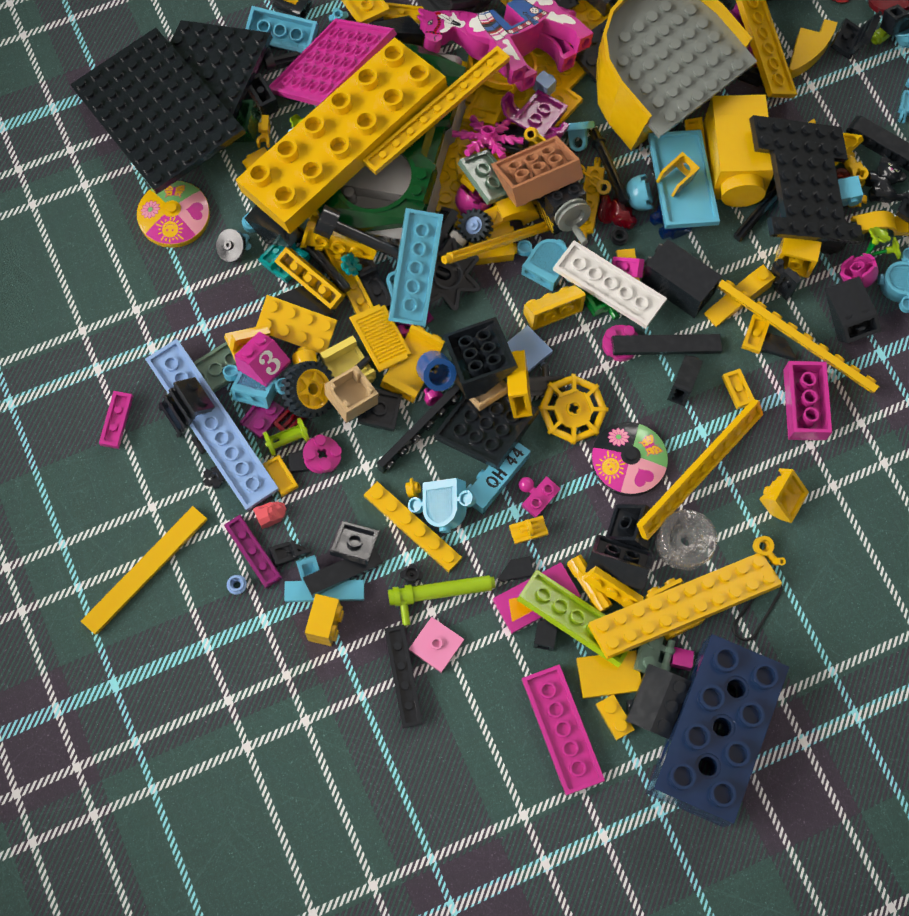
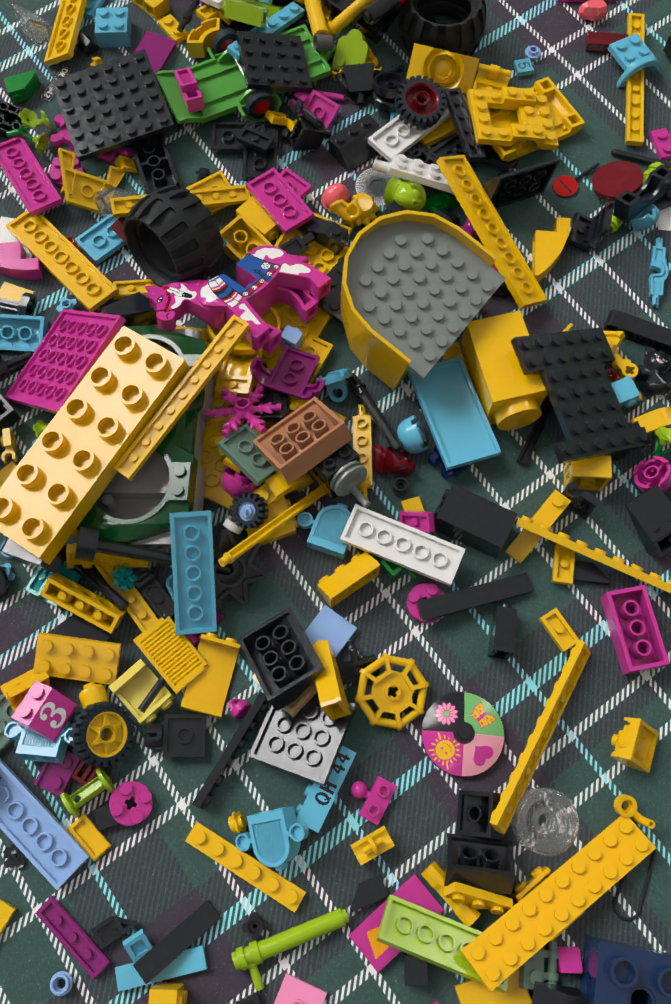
camera: 10 degrees left, 0 degrees up
(270, 513) = (84, 888): coral rock -> none
(351, 393) = (149, 732): tan container -> none
(354, 542) = (184, 903): tile -> none
(442, 376) = (237, 682): blue piece -> none
(449, 219) = (218, 507): black plate -> none
(536, 135) = (349, 425): yellow piece -> none
(679, 163) = (447, 398): yellow piece -> none

